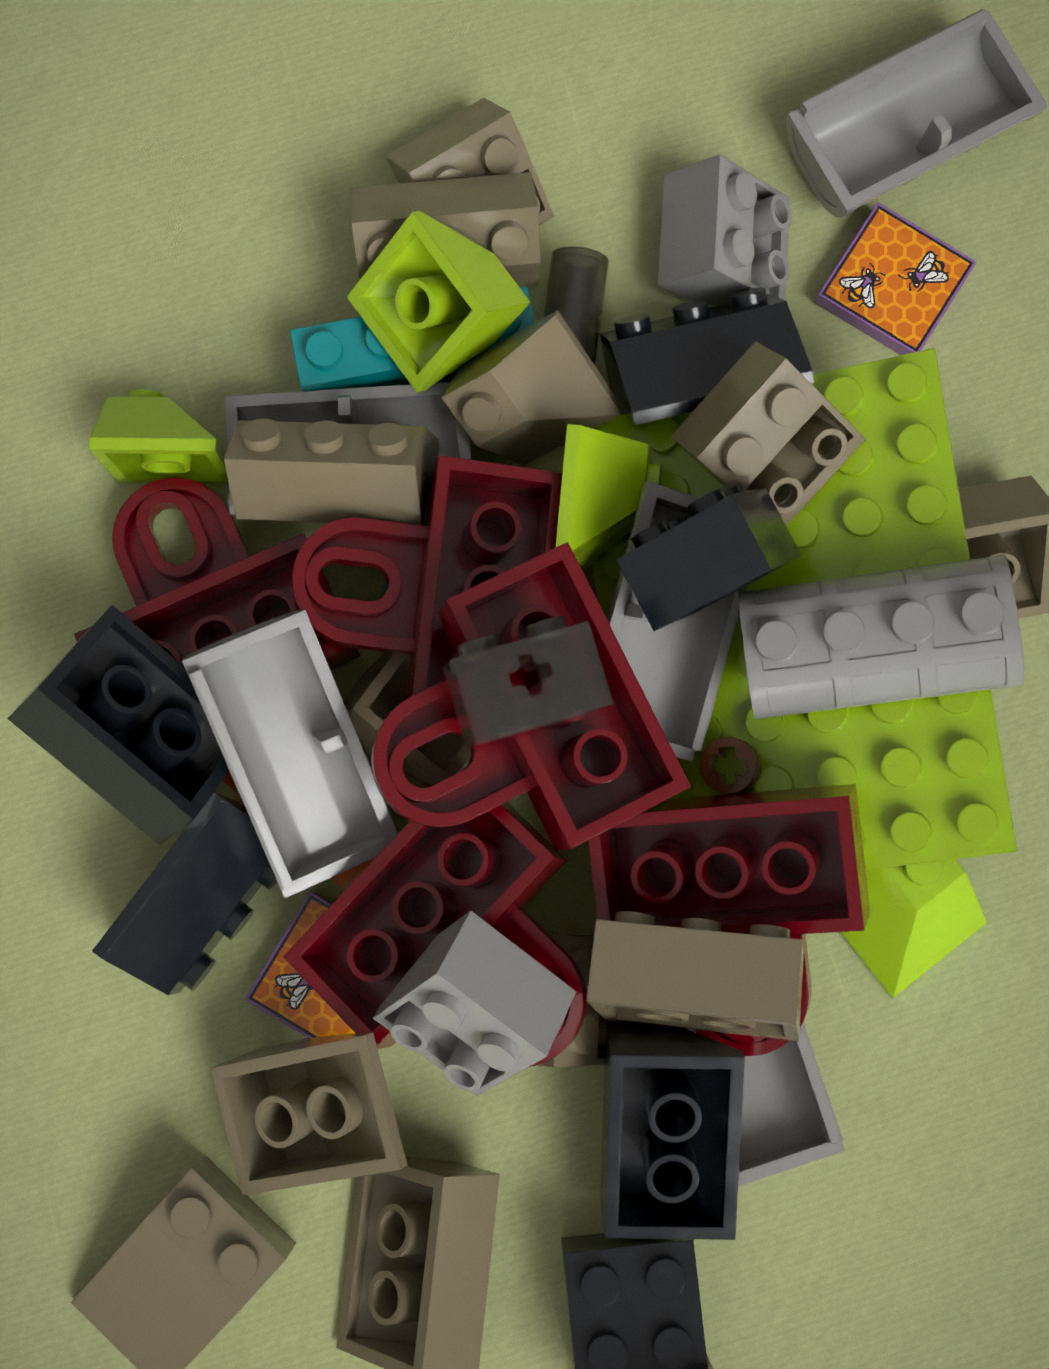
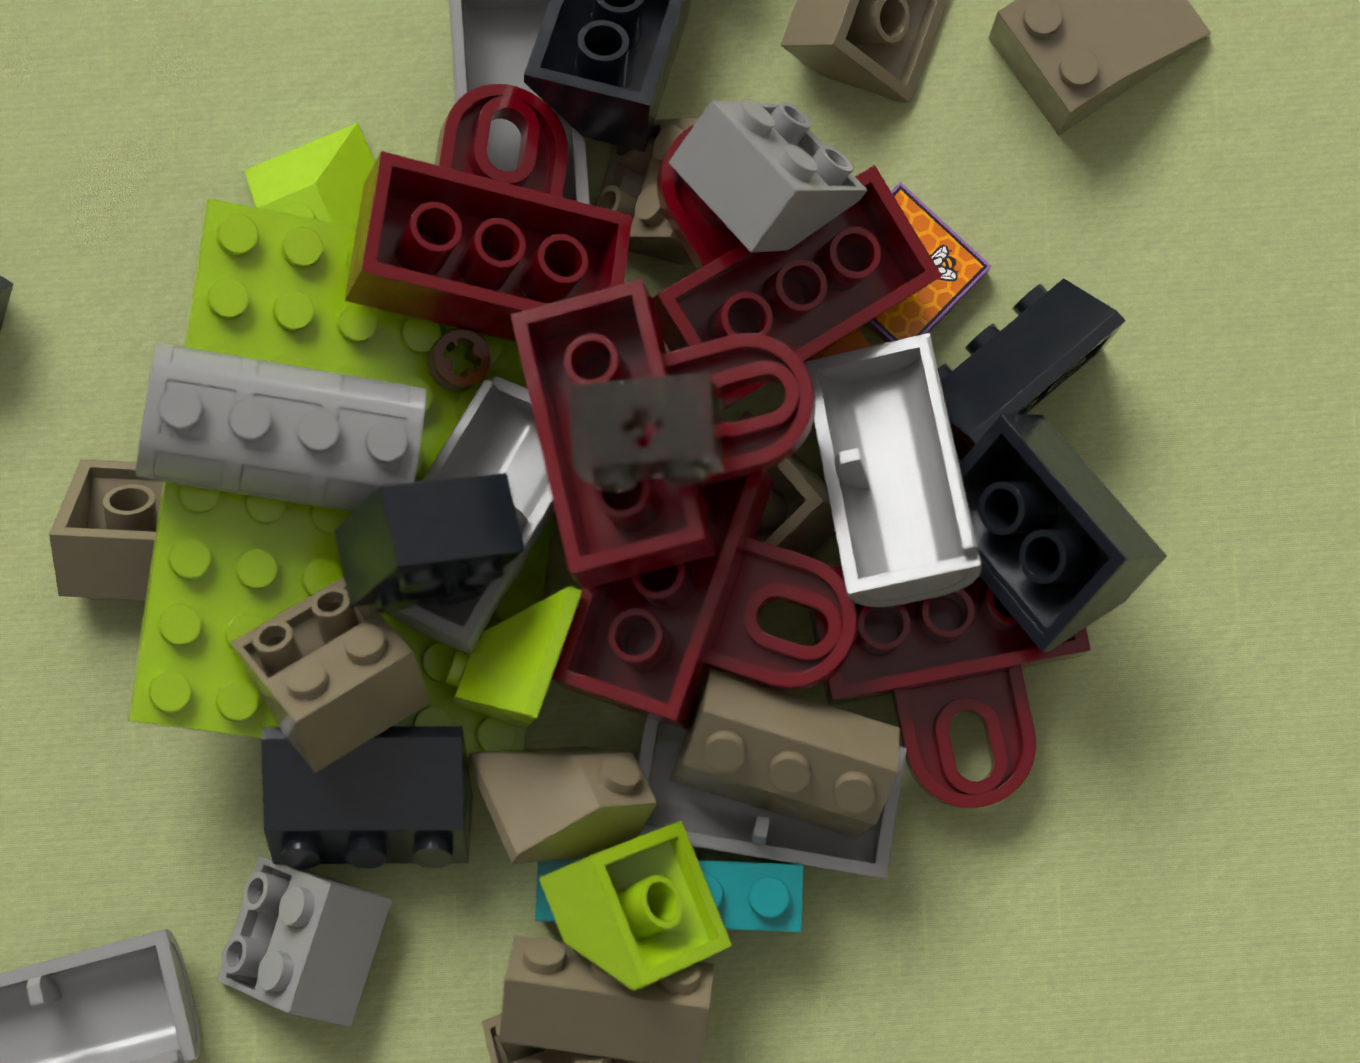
camera: 160 degrees left, 0 degrees up
(154, 439) = (967, 853): lime slope -> none
(308, 1113) = (949, 134): dark tan slope -> none
(578, 292) = (488, 901): clear smoke pin -> none
(697, 976) = (550, 152): dark tan slope -> none
(895, 281) = (131, 852): tile -> none

